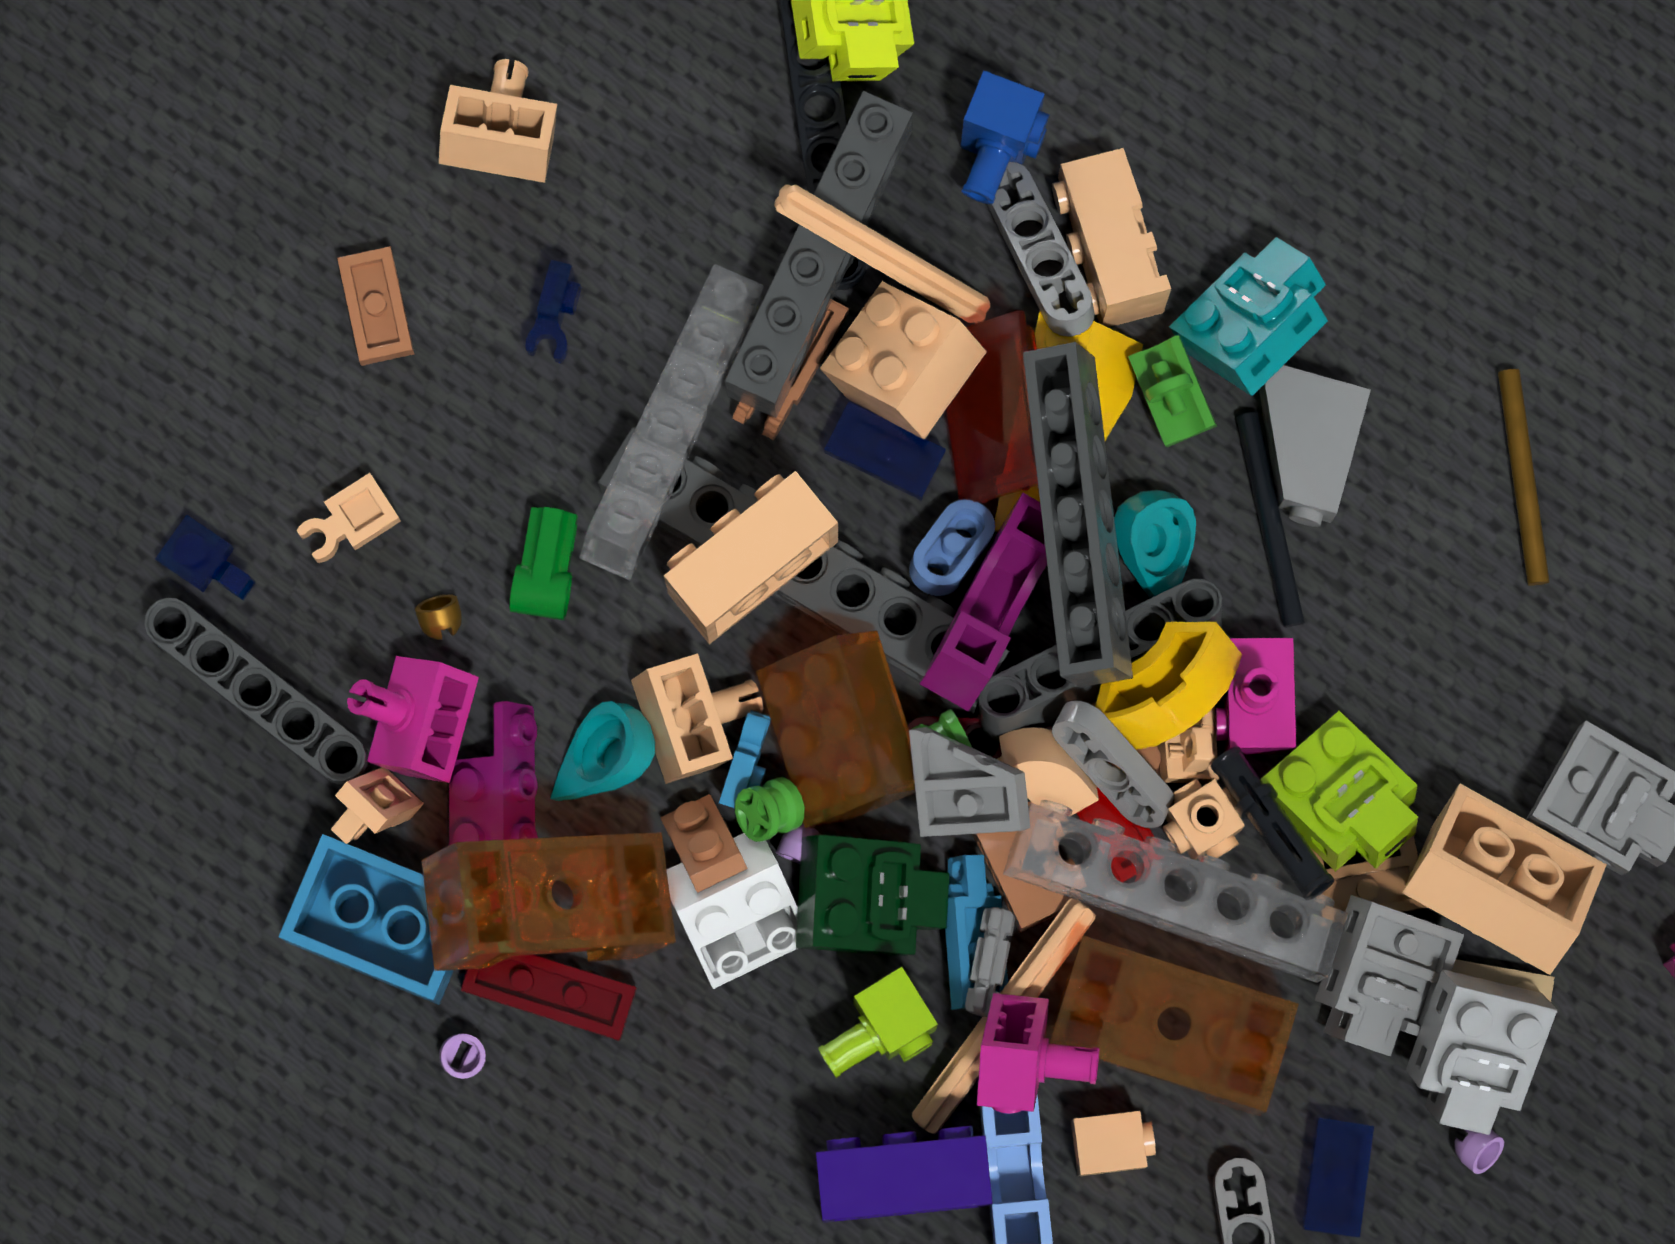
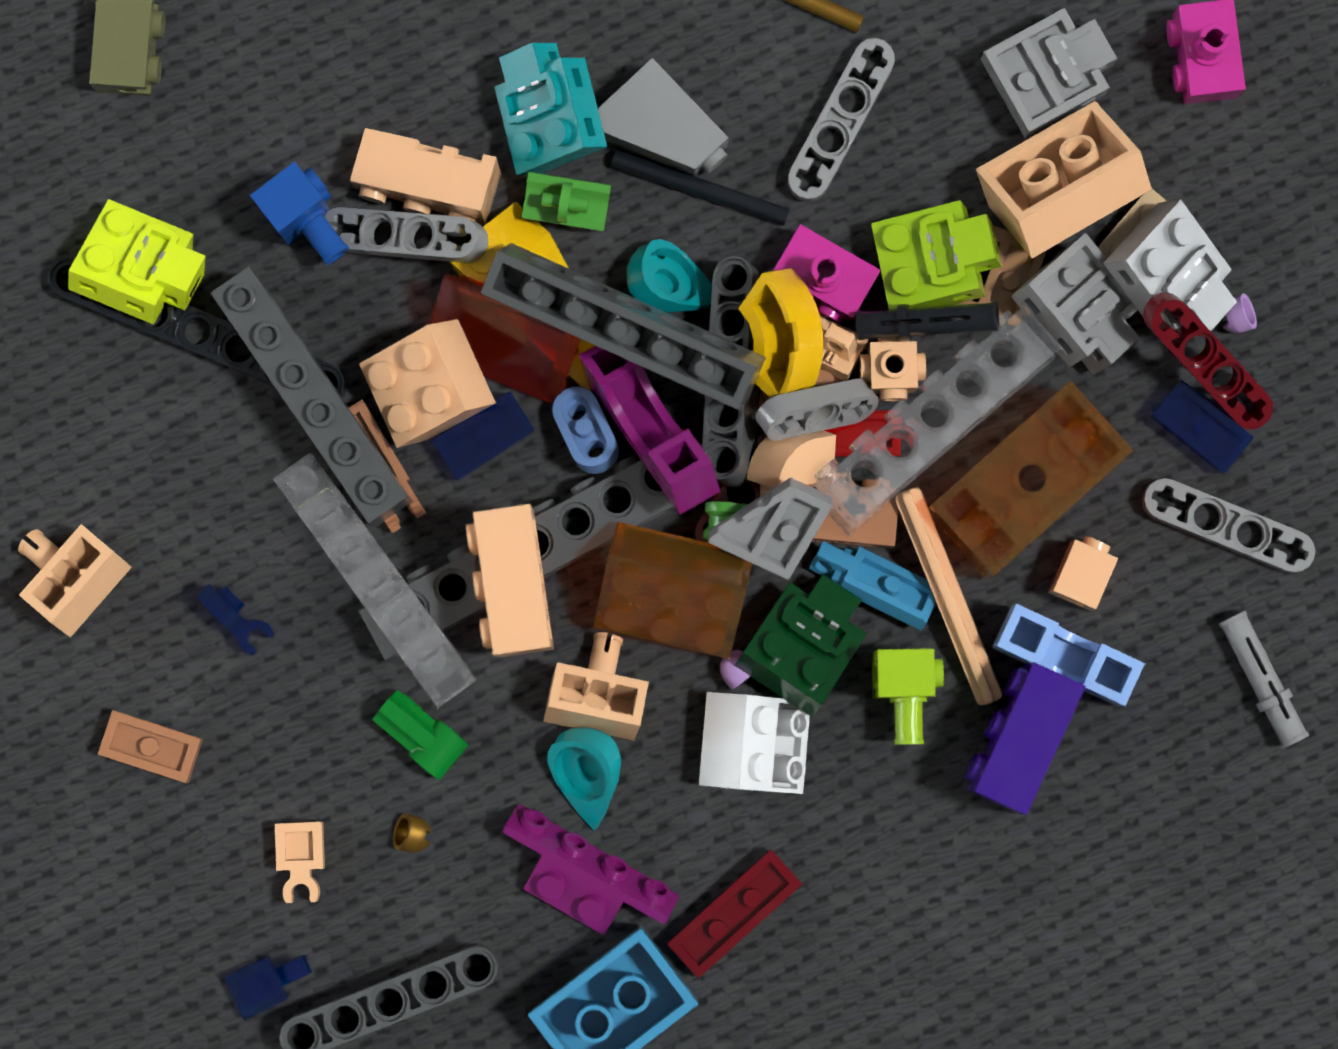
camera: 60 degrees left, 5 degrees up
(374, 802) = (526, 963): light nougat hinge -> none
(417, 717) = (480, 894): dark pink brick -> none
(472, 1060) = (753, 1000): lavender hinge -> none
(499, 902) = (663, 915): clear orange plate -> none
(703, 843) = (696, 739): nougat plate -> none
(744, 768) = (662, 679): dark azure plate -> none
(769, 809) = (702, 677): bright green wheel -> none
(881, 253) = (341, 352): light nougat axle -> none
(989, 959) = (905, 583): light grey axle -> none
(1019, 1056) = (993, 602): dark pink brick -> none
(1413, 1141) = (1208, 361): none -> dark red beam
(1426, 613) = (837, 118): none -> light grey beam

